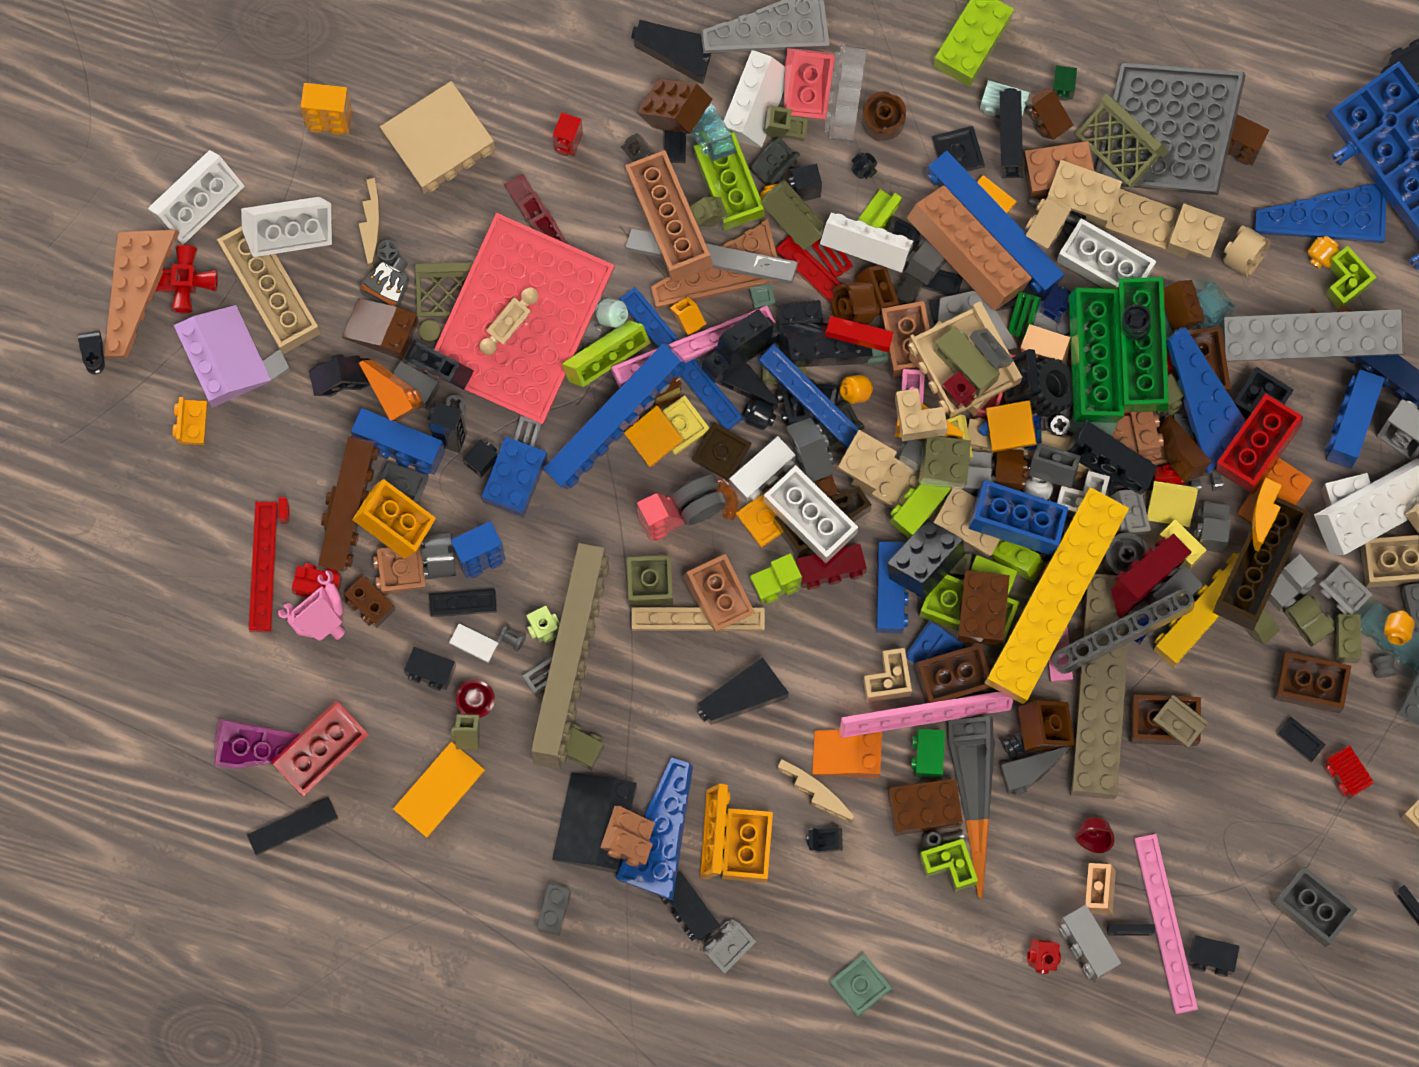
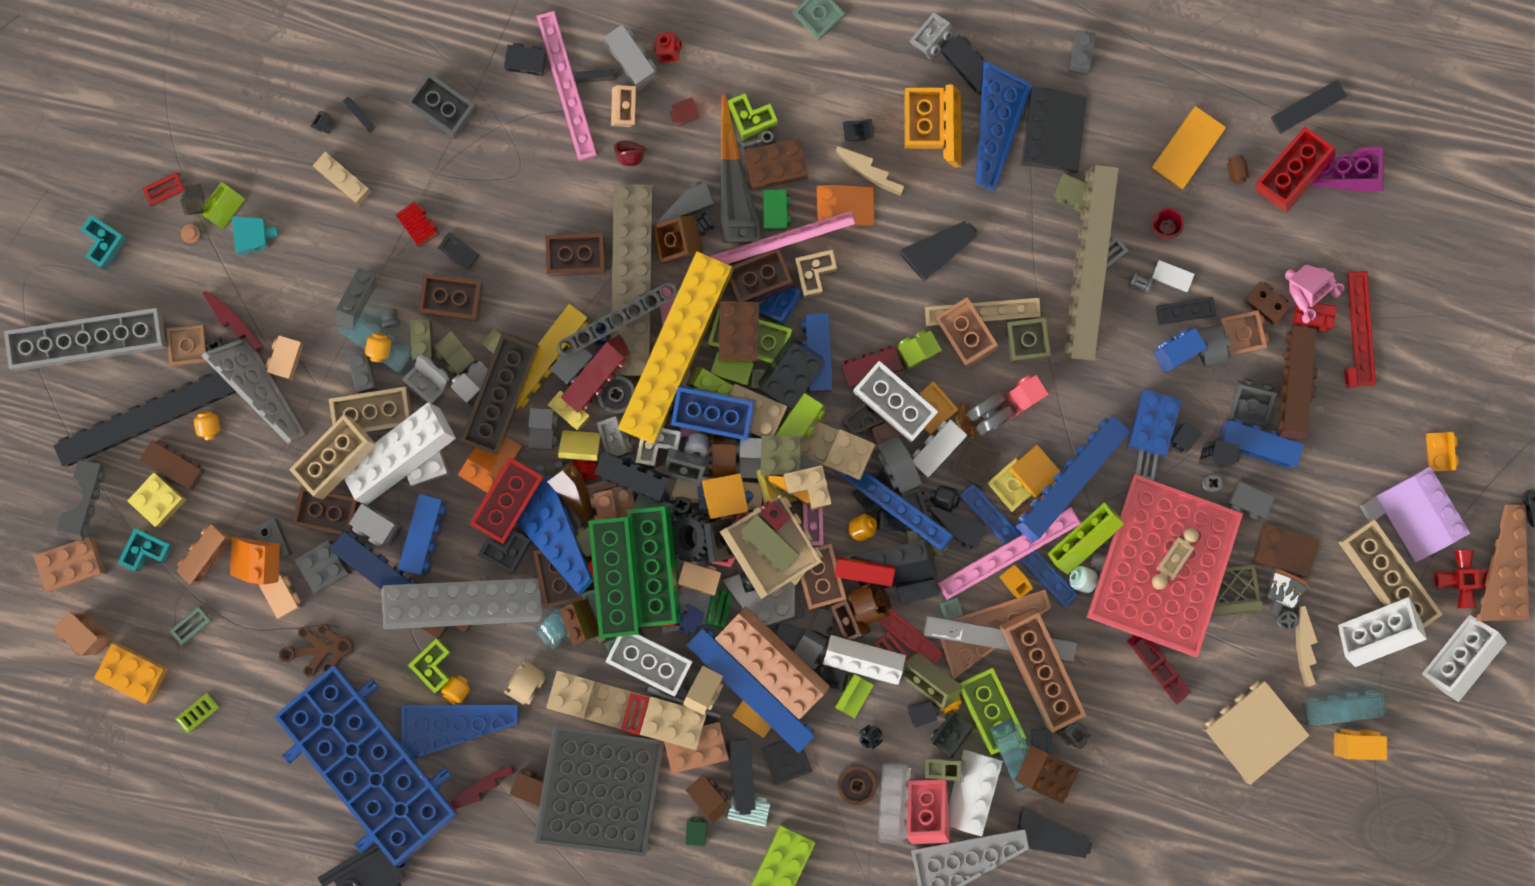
camera: 175 degrees right, 10 degrees up
(336, 153) = (1344, 709): none -> clear light blue brick
(338, 375) = (1316, 501): black brick -> none
(384, 757) = (1238, 169): none -> reddish brown brick
(393, 393) = (1272, 484): orange slope -> none
(394, 519) = (1257, 368): light orange brick -> none
(429, 331) = (1241, 552): olive tile -> none
(429, 669) = (1208, 247): black brick -> none
(439, 364) = (1231, 516): black slope -> none
(466, 732) = (1171, 195): olive brick -> none
(543, 617) = (1111, 299): yellowish green brick -> none
(567, 134) = (1140, 741): red brick -> none
(628, 837) = (1026, 112): nougat plate -> none
(709, 211) = (1007, 675): olive brick -> none
(740, 345) = (967, 553): black brick -> none
(991, 348) = (749, 553): dark grey plate -> none
(1028, 878) = (684, 112): none -> clear red brick
(1119, 225) = (639, 698): none -> red tile
(1136, 322) = (621, 589): black wheel -> none
(1137, 131) = (633, 790): olive fence -> none
(1180, 721) = (563, 247): dark tan plate -> none
(1265, 512) = (499, 433): light orange slope -> none
(1307, 142) = (473, 793): none -> dark red slope

